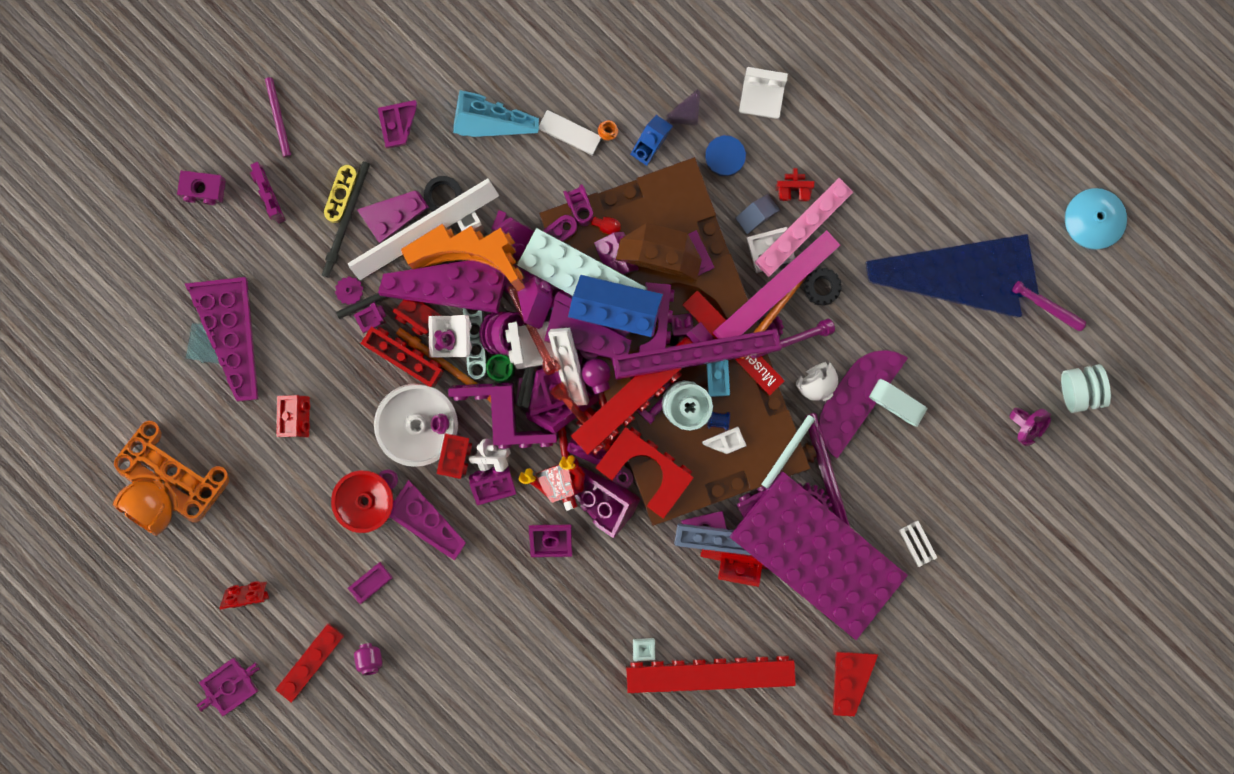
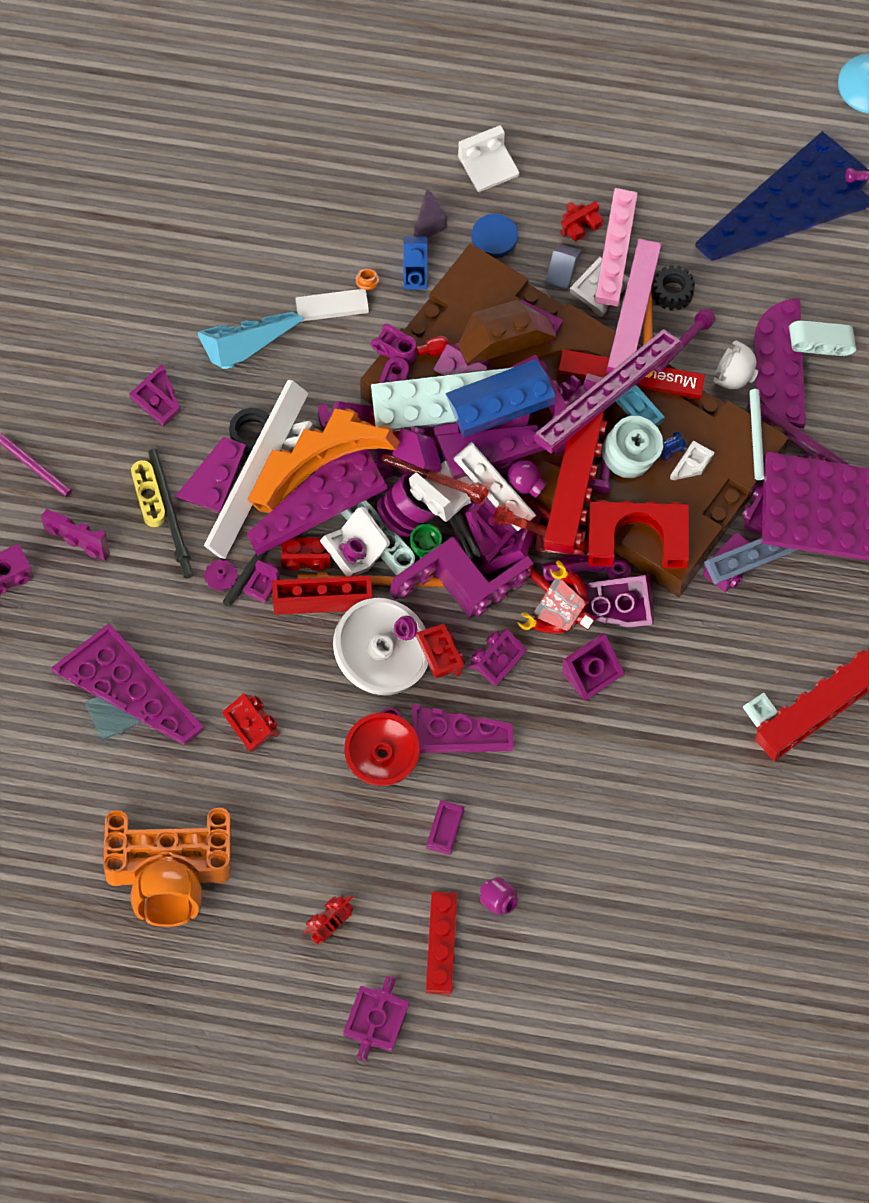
camera: 40 degrees left, 20 degrees down
(489, 454) = (474, 625): white hips -> none
(736, 567) = (787, 573): red bracket -> none

